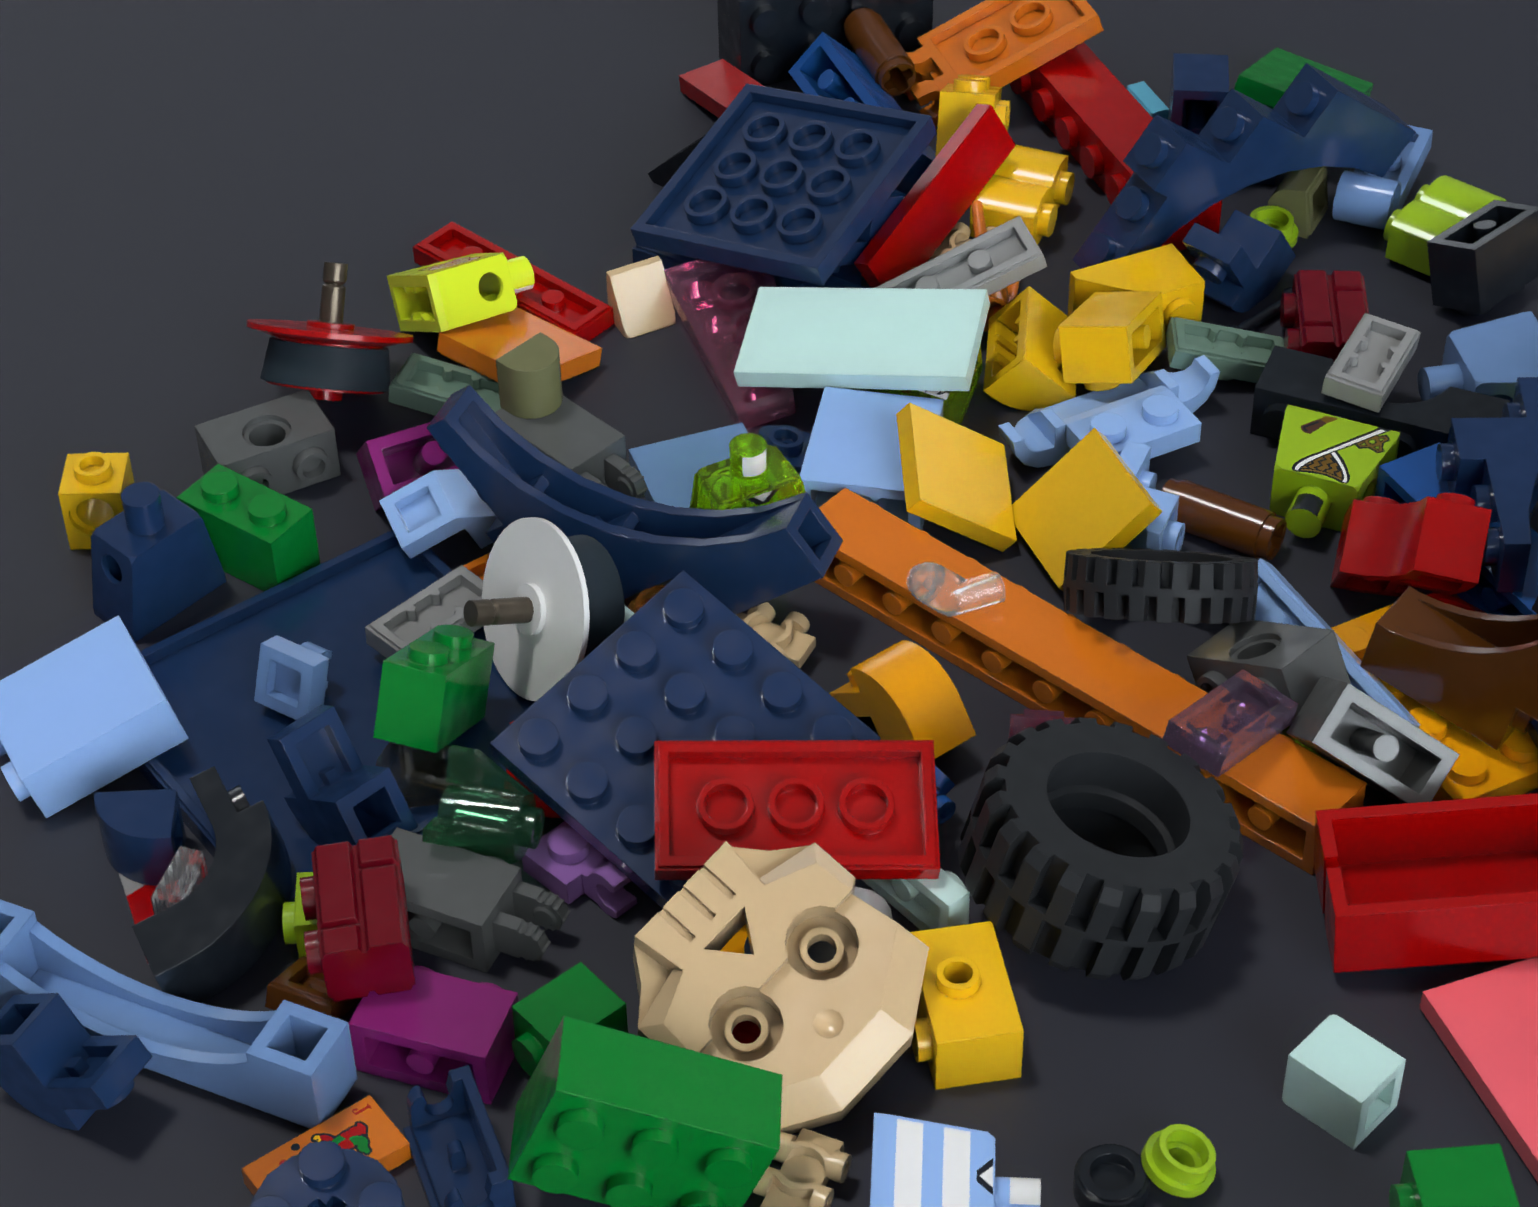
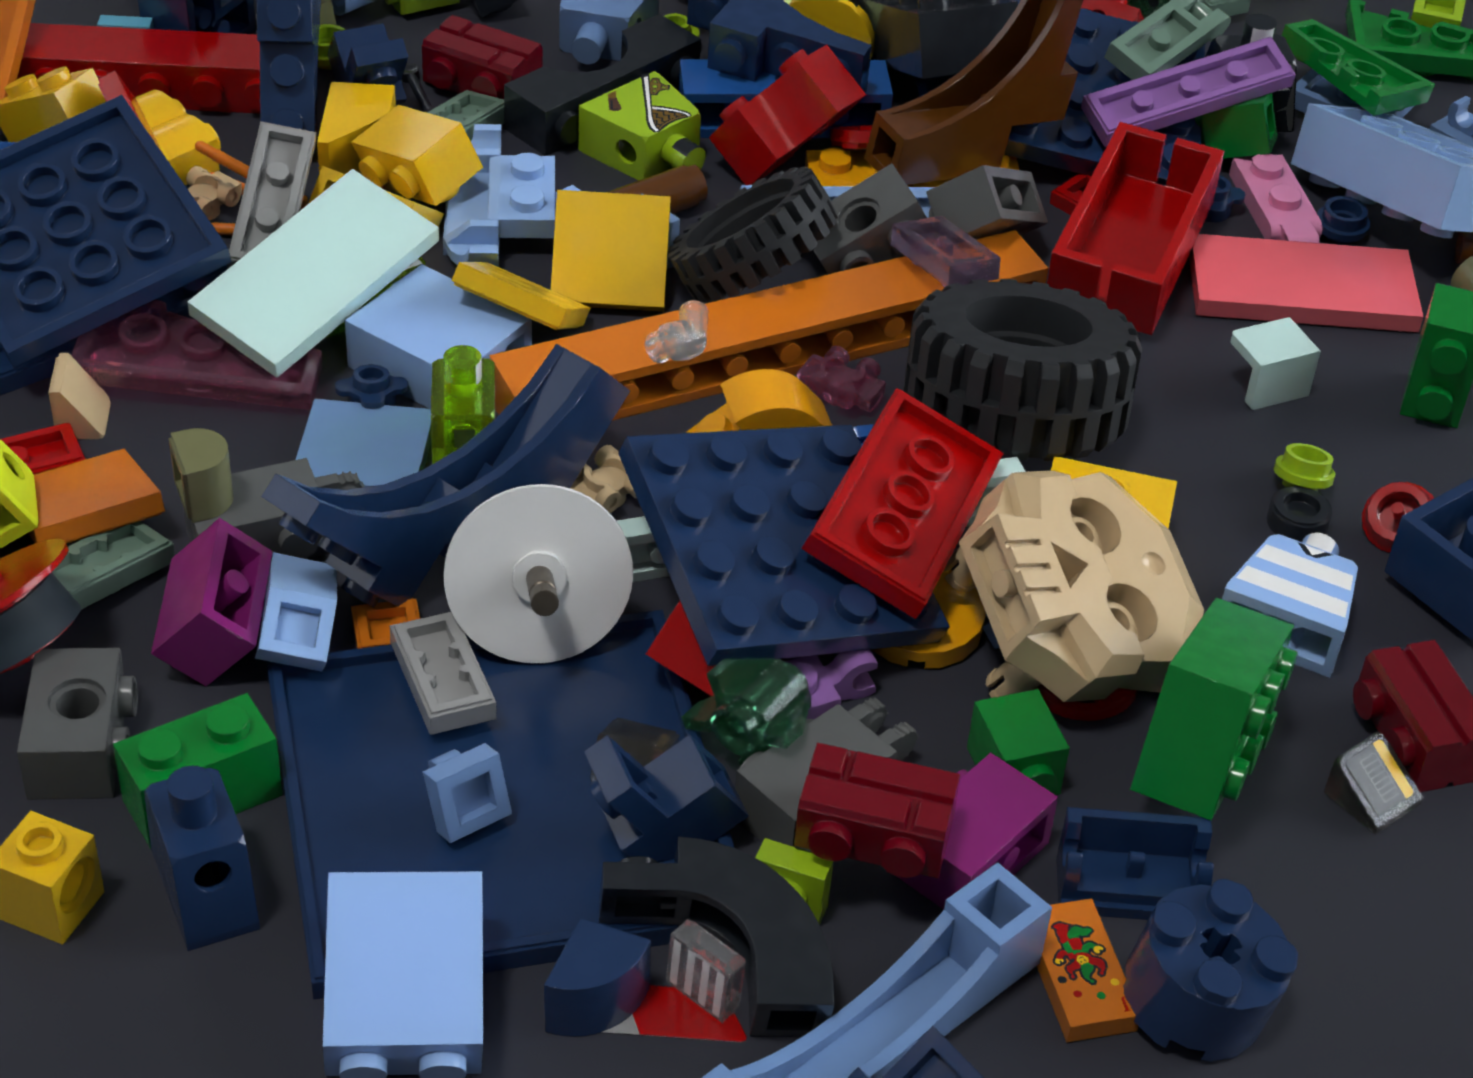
camera: 70 degrees left, 0 degrees up
(305, 990) = (875, 911): reddish brown tile -> none
(434, 688) = (583, 681): green brick -> none
(1371, 362) = (576, 46): light grey plate -> none

